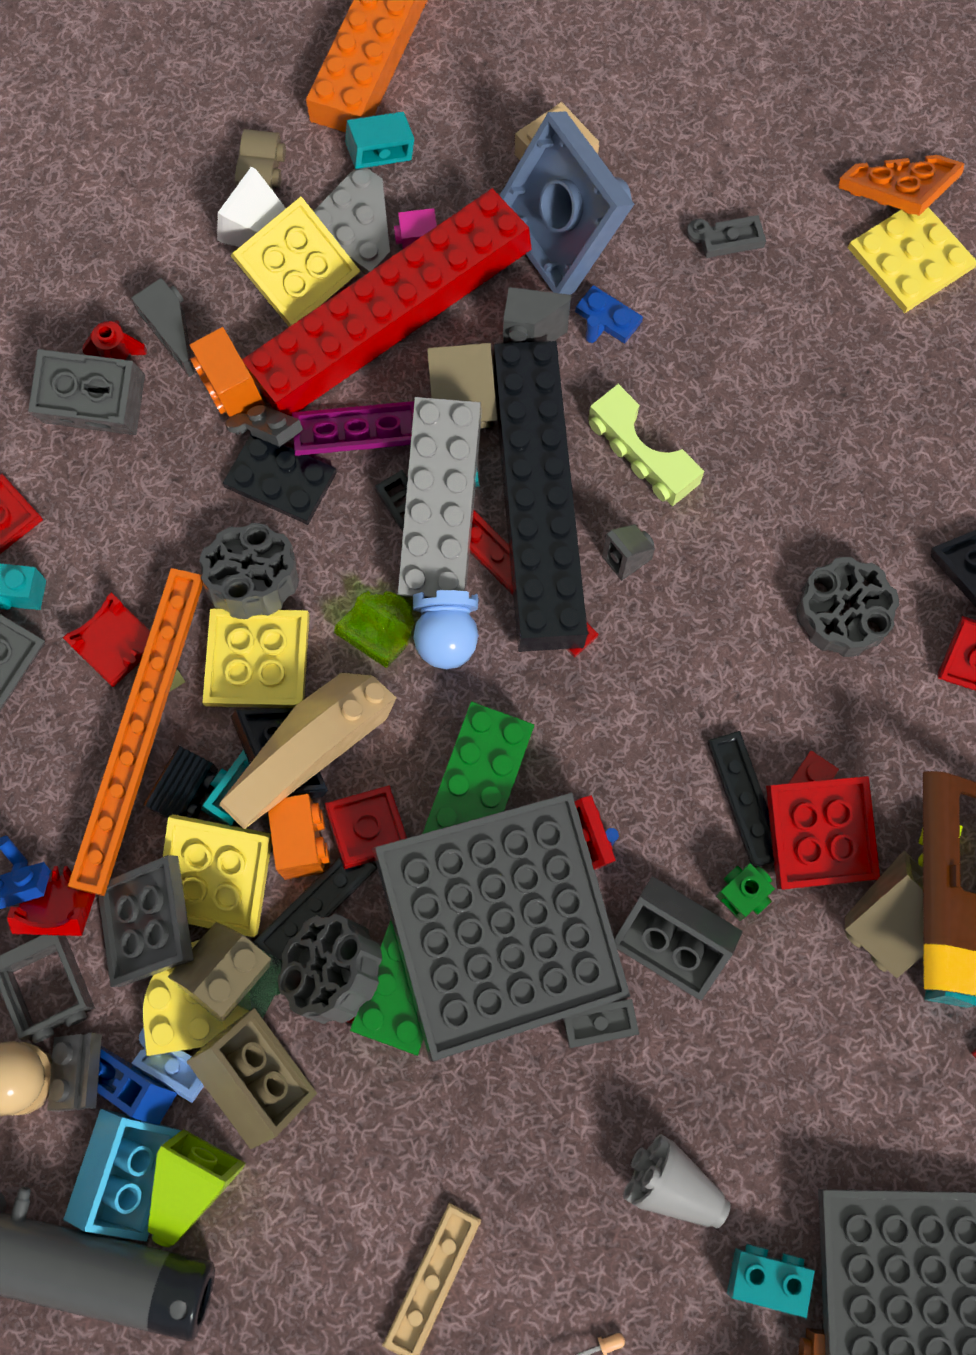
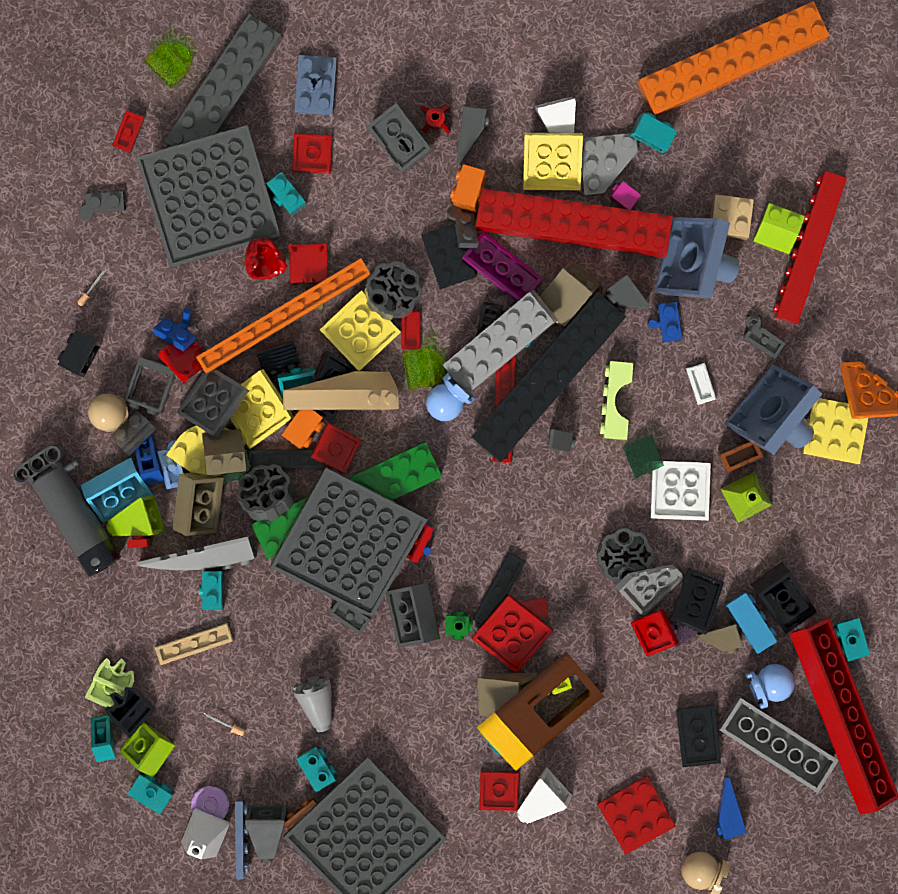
camera: 45 degrees right, 15 degrees up
(48, 684) = (264, 259): none -> red hair
(218, 1213) = (139, 541): none -> red plate
(262, 152) = (589, 87): dark tan brick -> none
(319, 601) = (410, 331): none -> red tile
(341, 1127) = (206, 557): none -> light grey wedge
(384, 1178) = (212, 590): none -> teal brick
(619, 113) = (778, 228): none -> lime slope
(674, 105) = (810, 247): none -> red brick
(715, 344) = (701, 383): none -> white tile
(742, 476) = (643, 456): none -> clear green piece
(823, 474) = (681, 491): none -> white plate
(833, 273) = (776, 411): none -> sand blue piece
(846, 369) = (739, 456): none -> dark orange brick
(903, 407) = (738, 497): none -> lime slope
(915, 610) = (648, 587): none -> light grey plate

